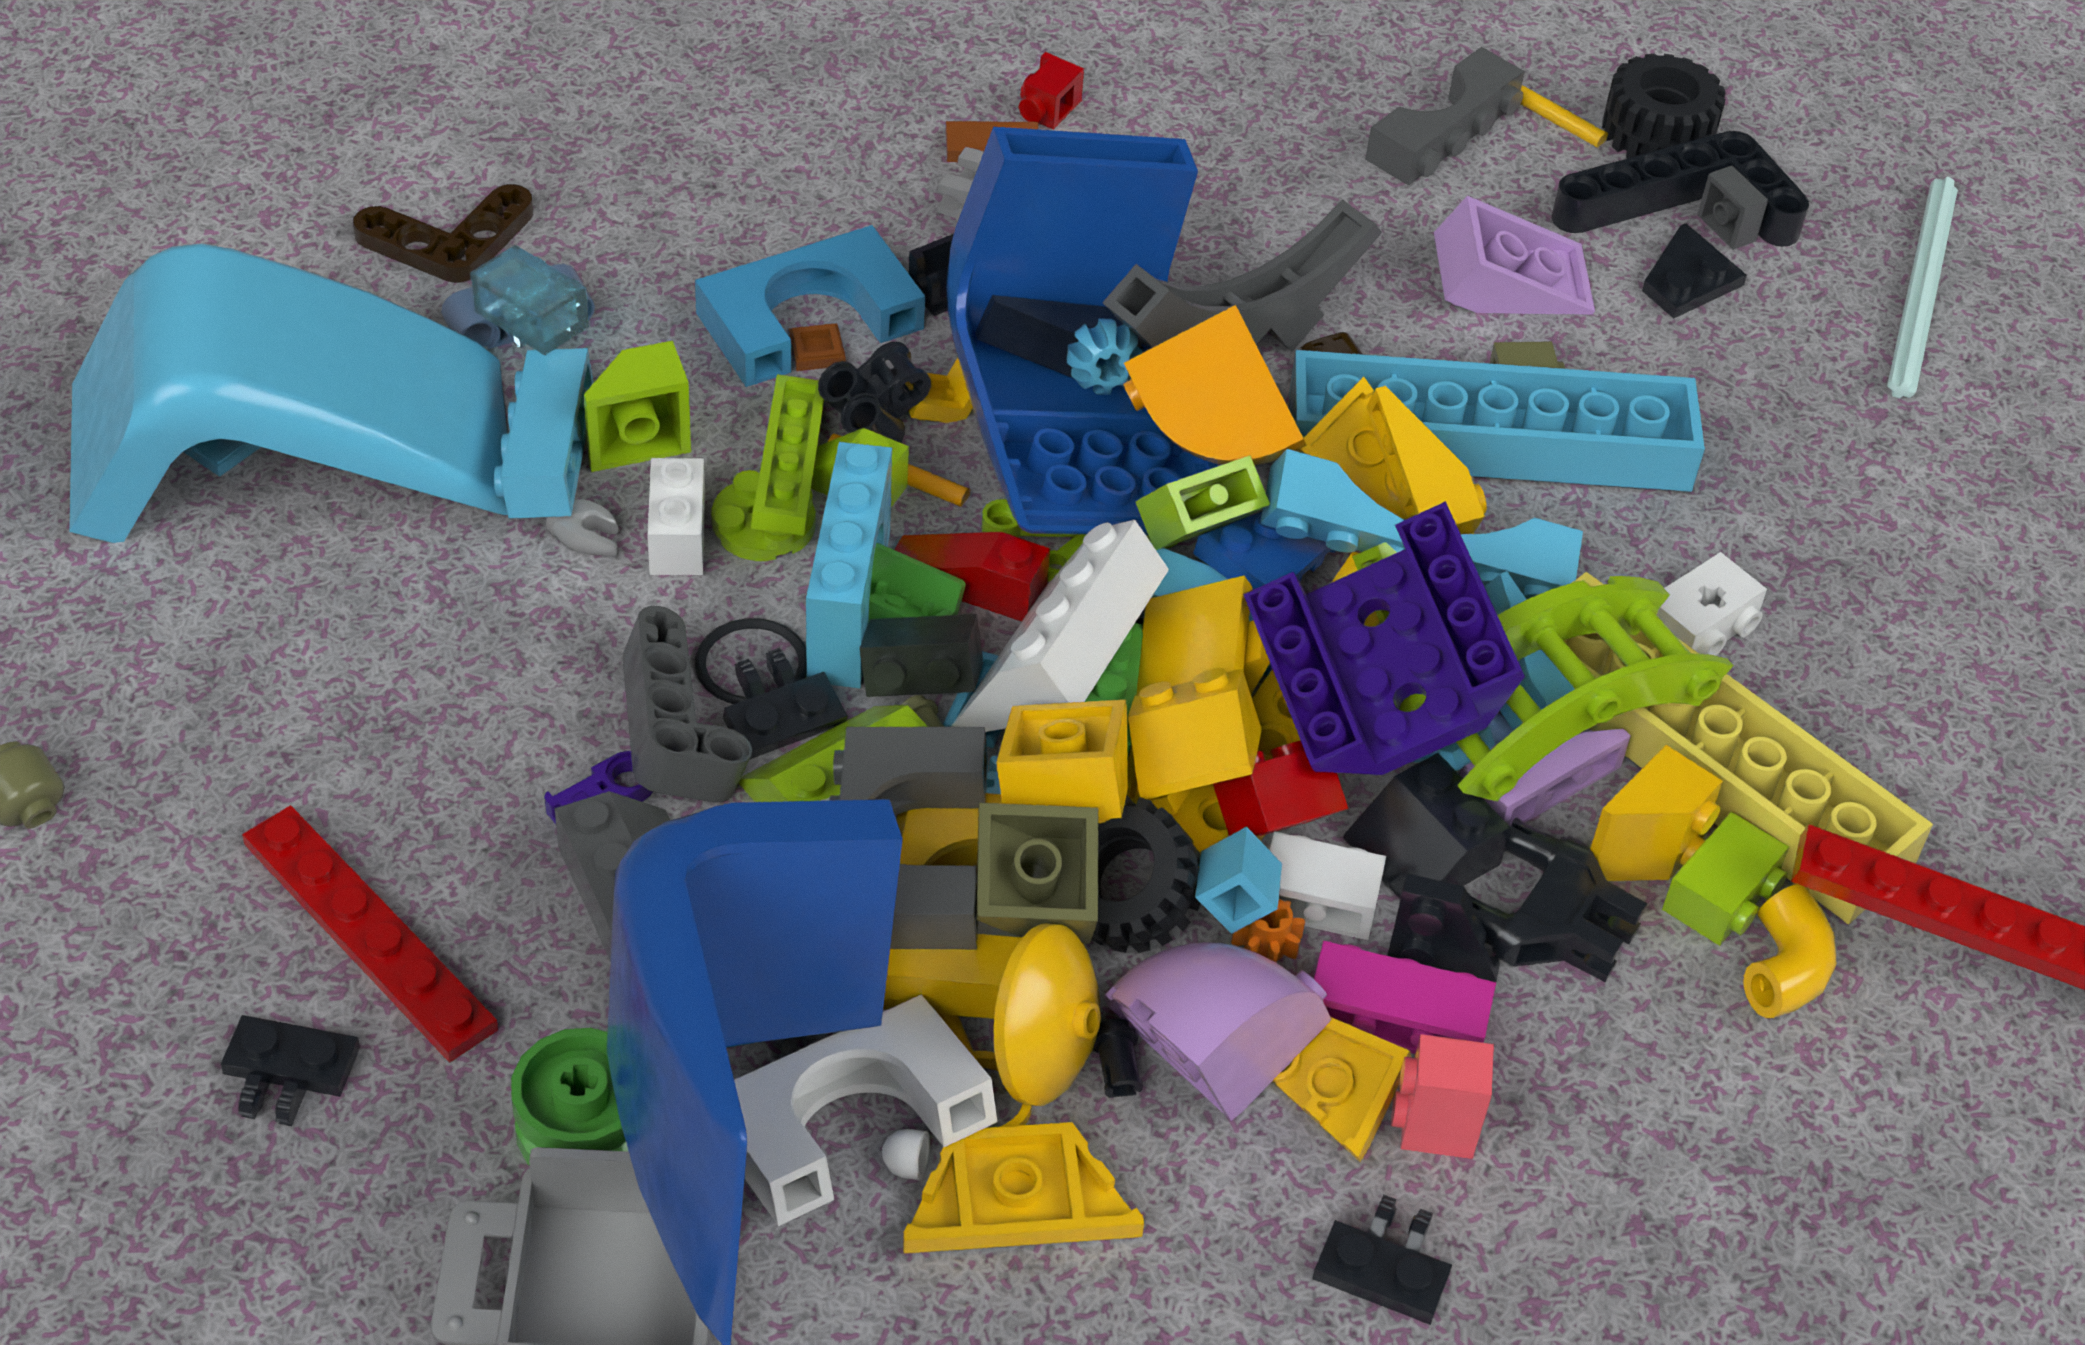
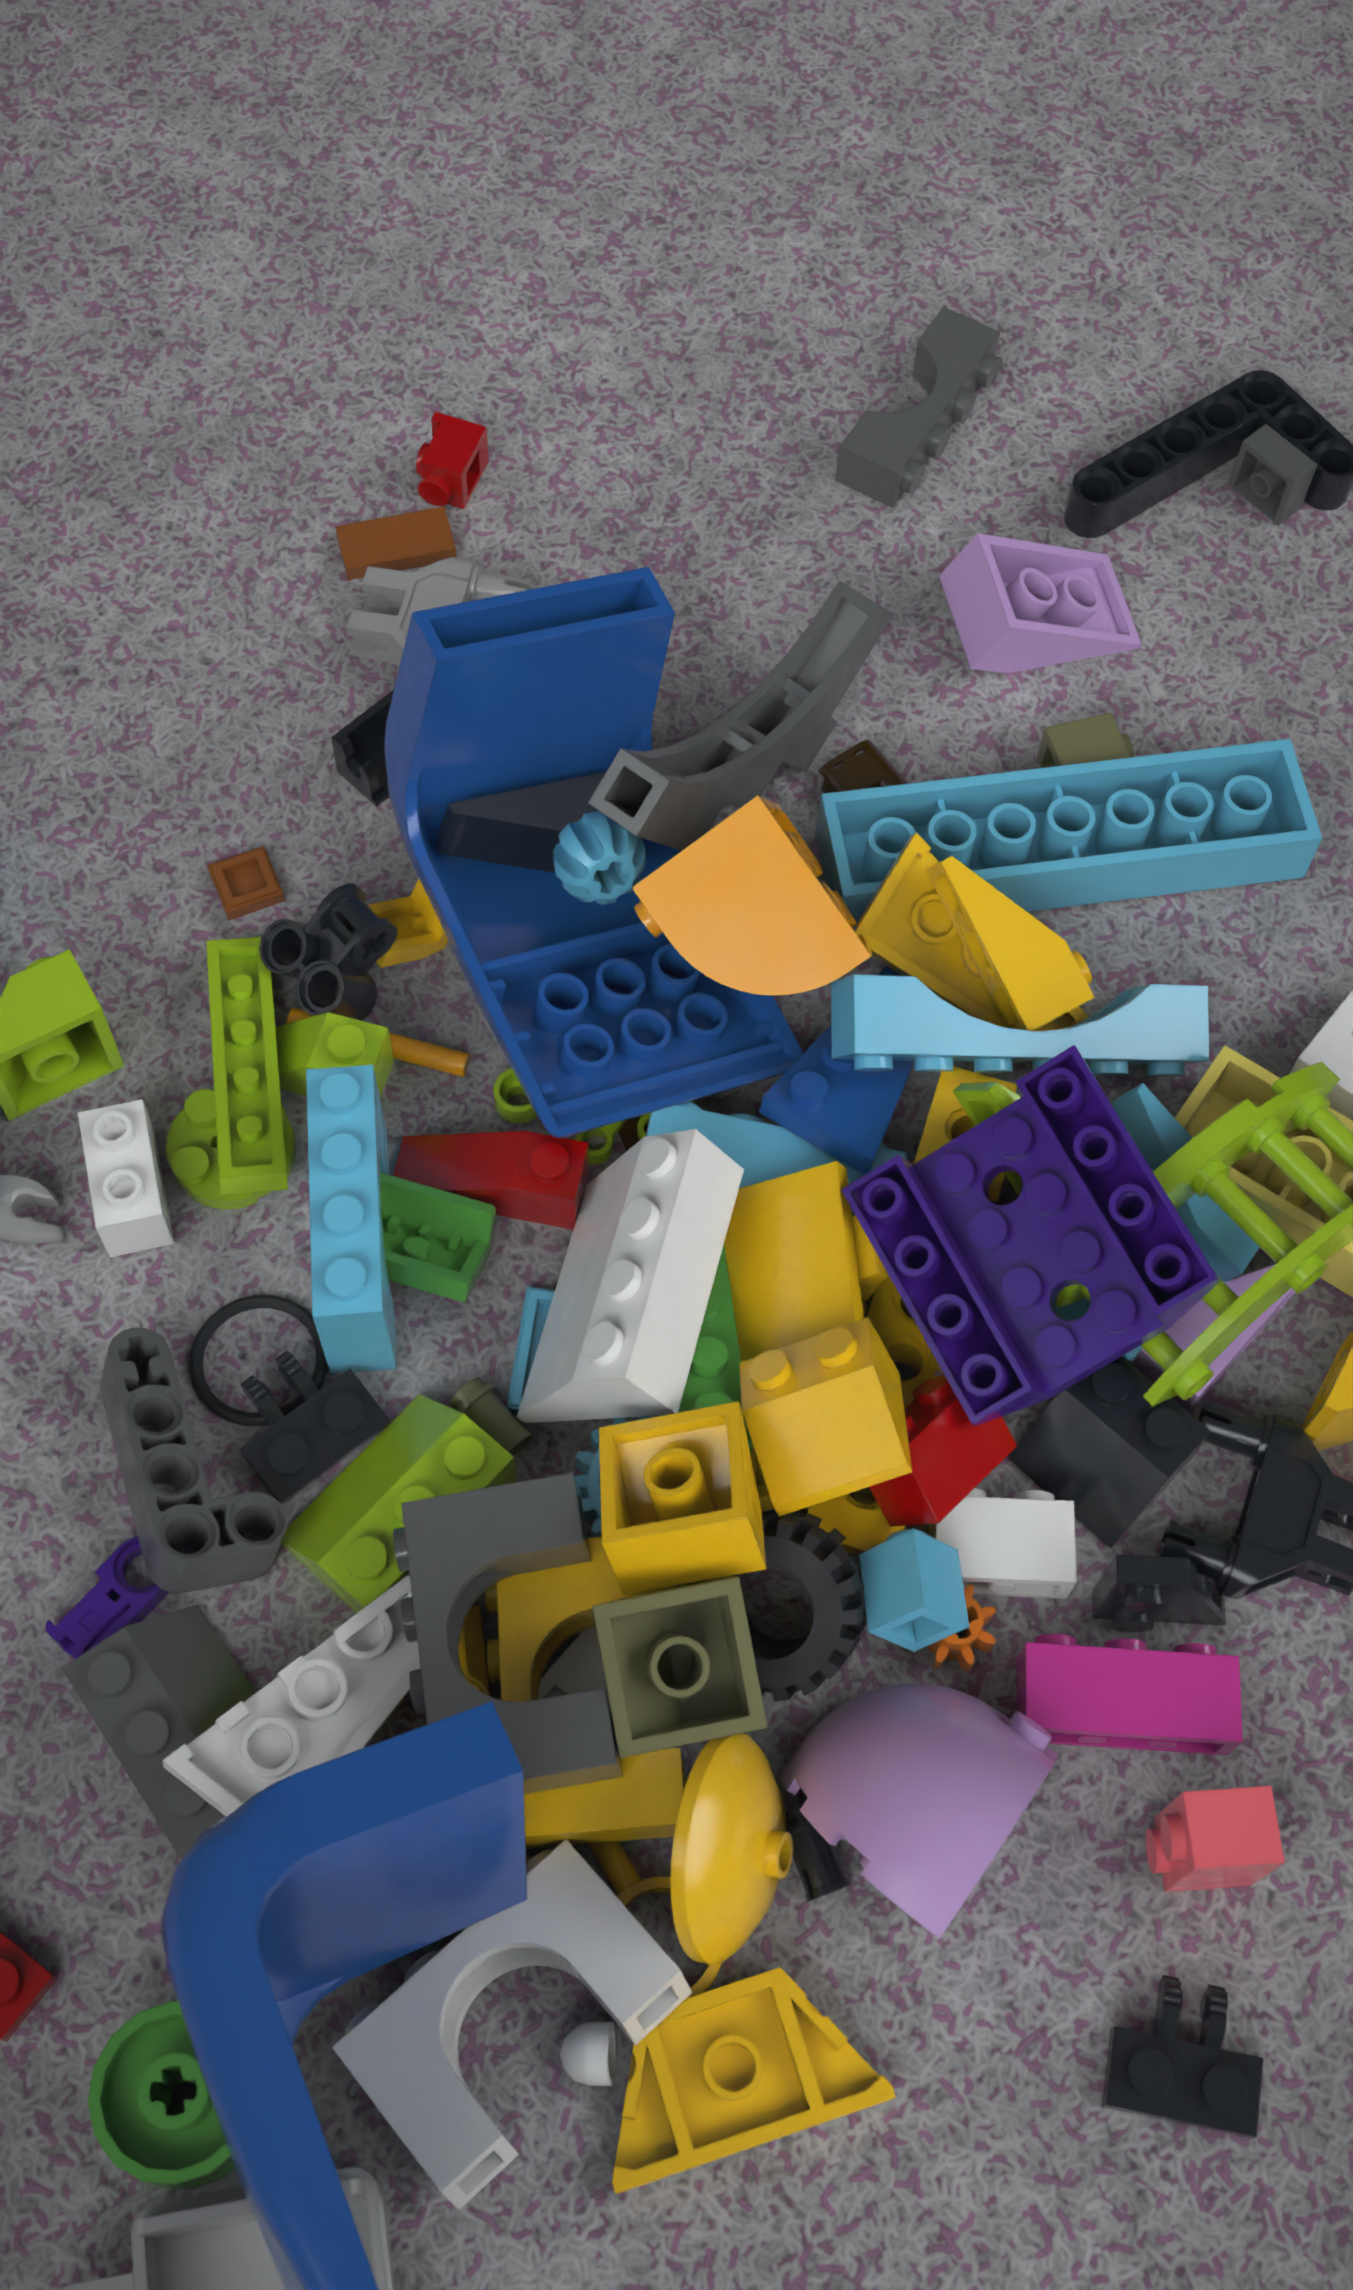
camera: 10 degrees left, 15 degrees up
(850, 267) = (260, 764): dark azure arch -> none
(921, 655) = (464, 1326): pearl dark grey brick -> none
(1202, 502) = (761, 1055): lime brick -> none
(1345, 1083) = (1089, 1827): yellow wing -> none
(1563, 117) = (1050, 379): yellow bar -> none
(1661, 104) = (1165, 349): black tyre -> none
(1690, 274) = (1239, 571): black wing -> none

